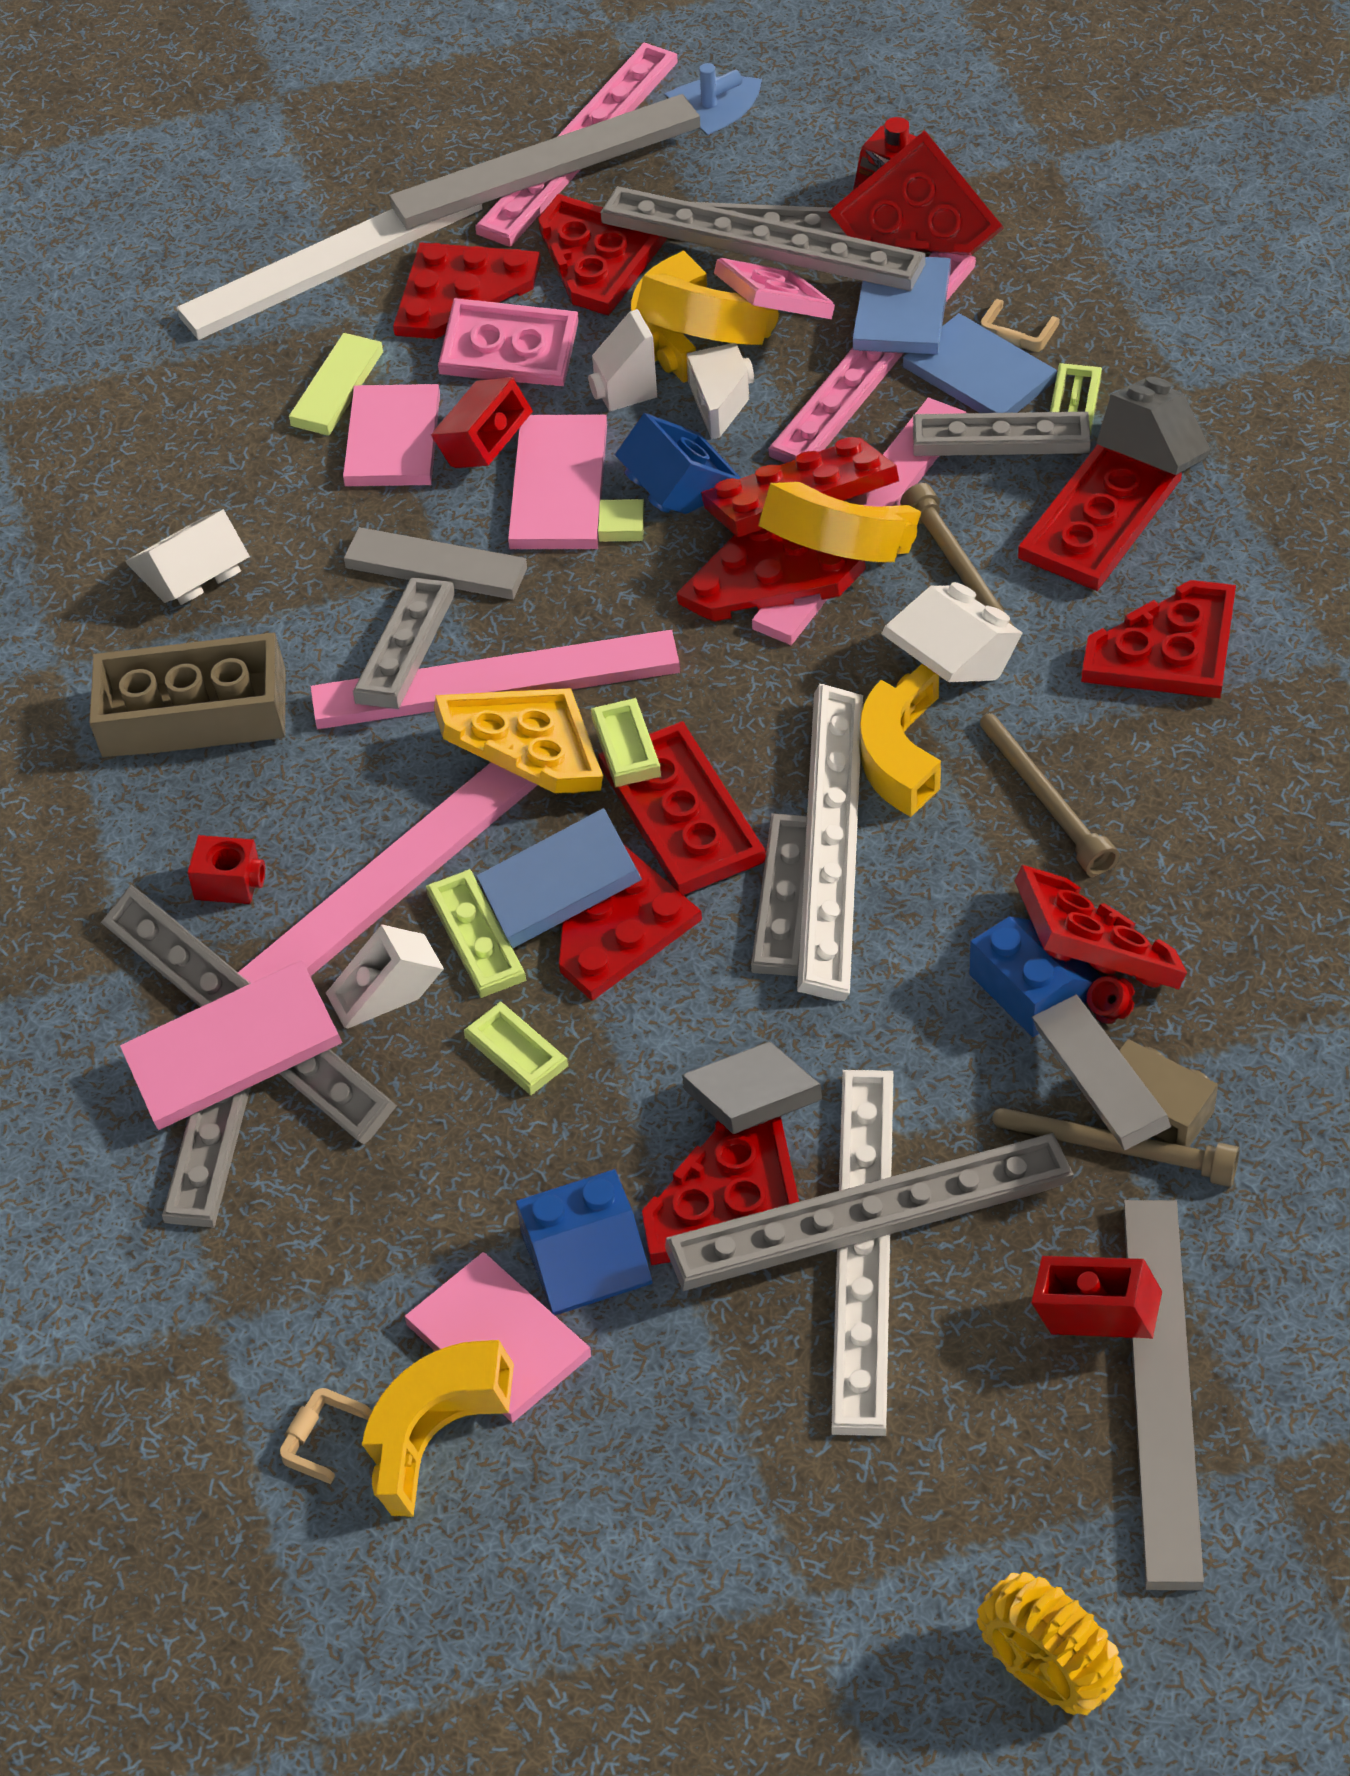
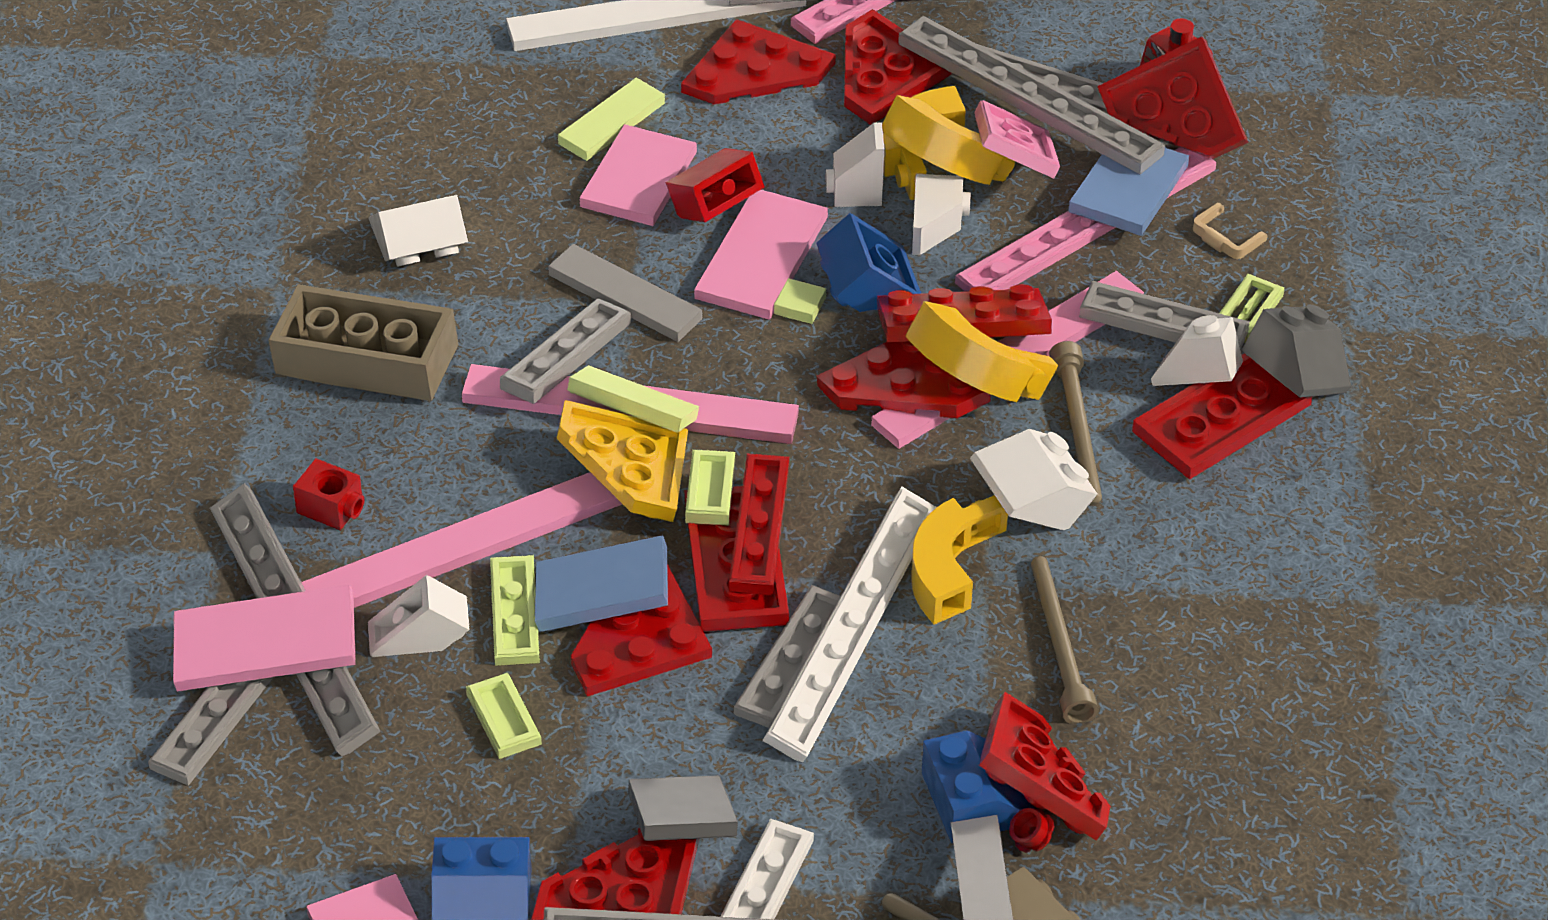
camera: 15 degrees right, 5 degrees down
(502, 673) = (633, 398): none -> yellowish green tile
(508, 341) = (772, 124): bright pink tile -> none
(694, 766) = (759, 524): none -> red tile
(982, 368) = (1177, 259): medium blue tile -> none
(1057, 459) = (1202, 354): none -> white slope
(1167, 644) = (1229, 543): red plate -> none

